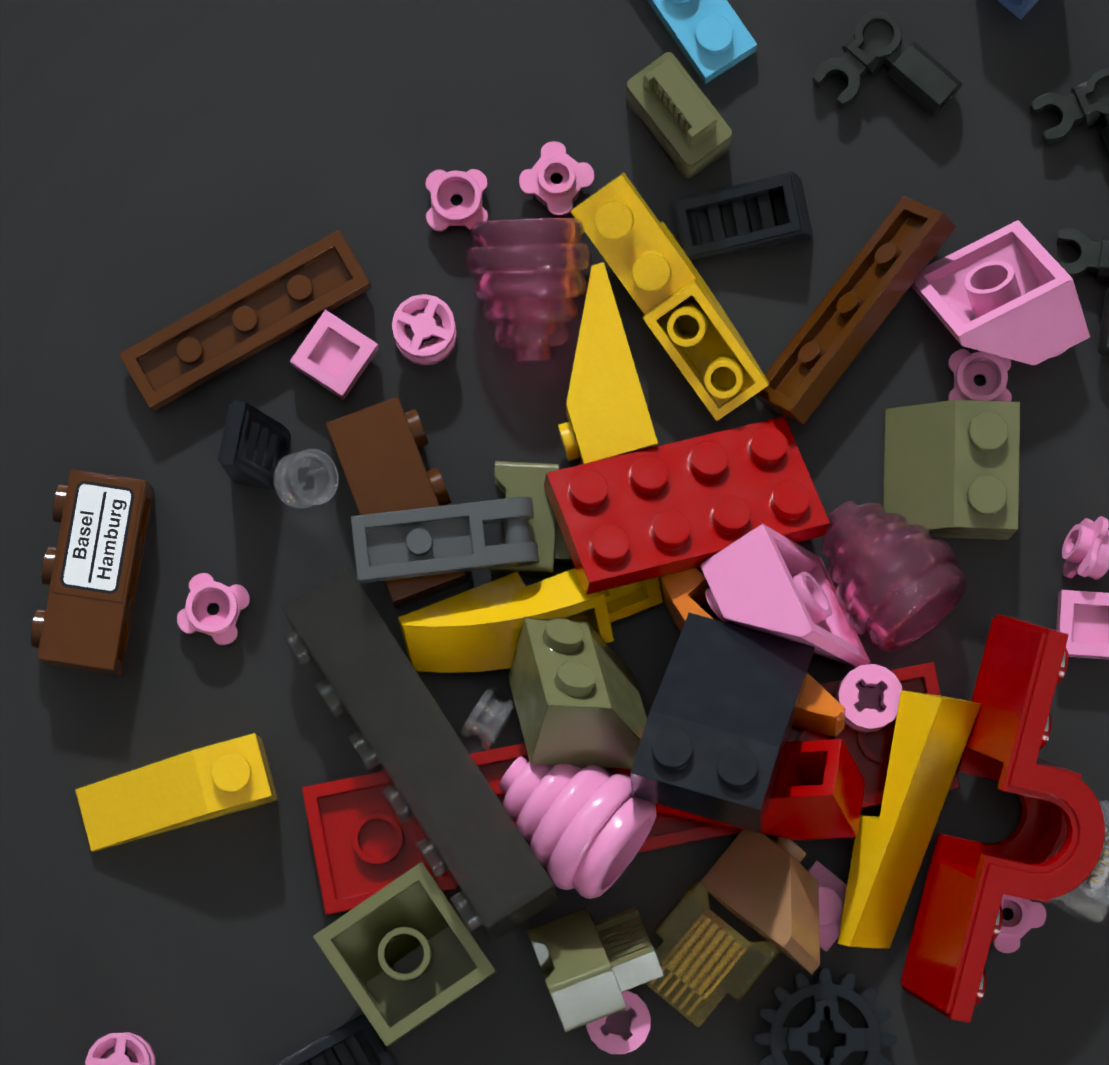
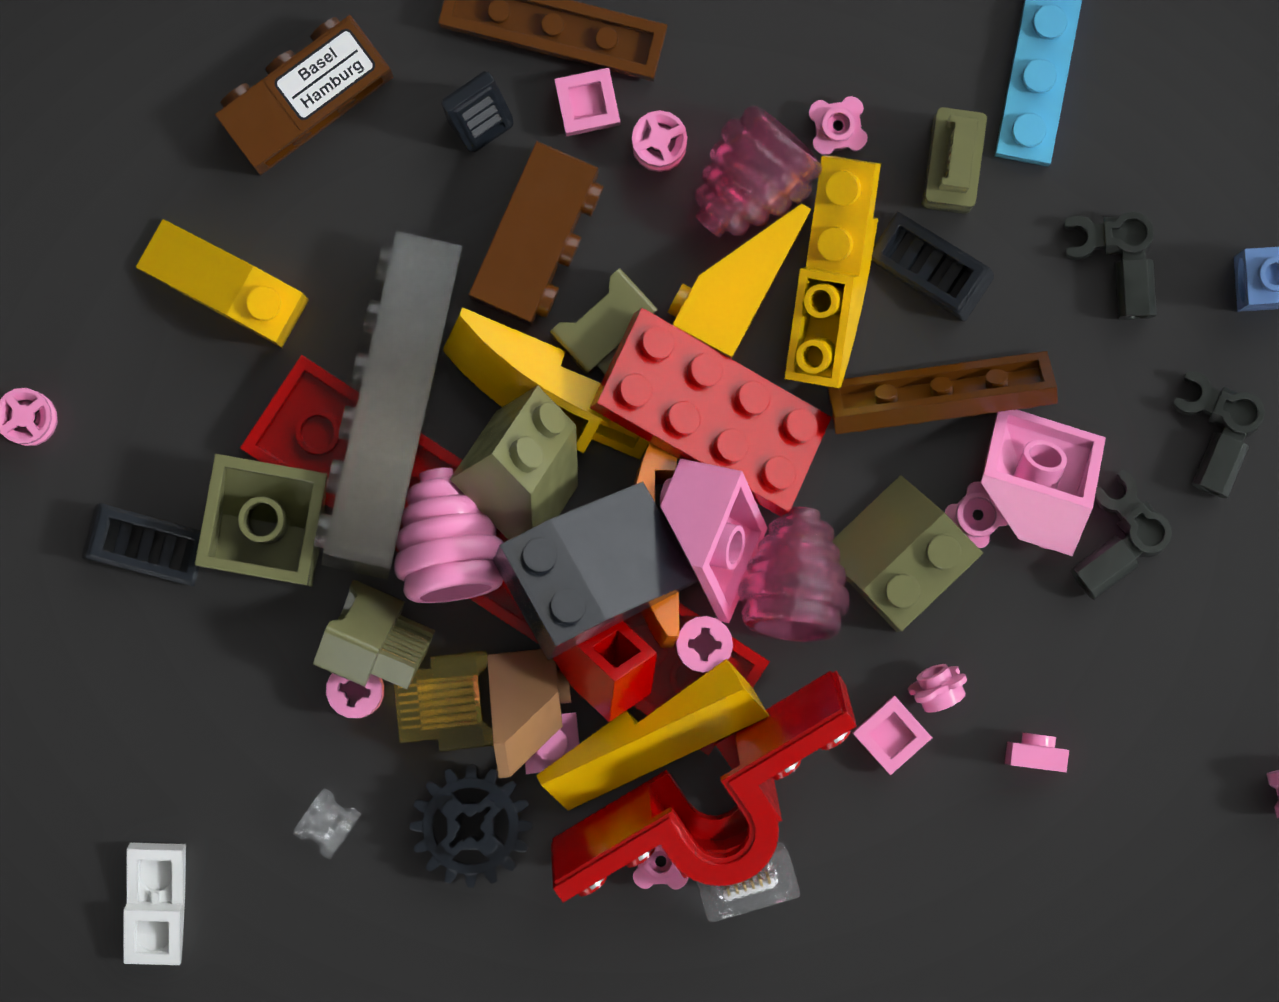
camera: 40 degrees right, 5 degrees up
(205, 592) = (359, 173): bright pink plate -> none
(321, 468) = (509, 168): clear bush -> none
(442, 540) = (534, 285): dark grey plate -> none
(447, 184) = (762, 61): bright pink plate -> none
(488, 718) = (459, 425): clear bush -> none

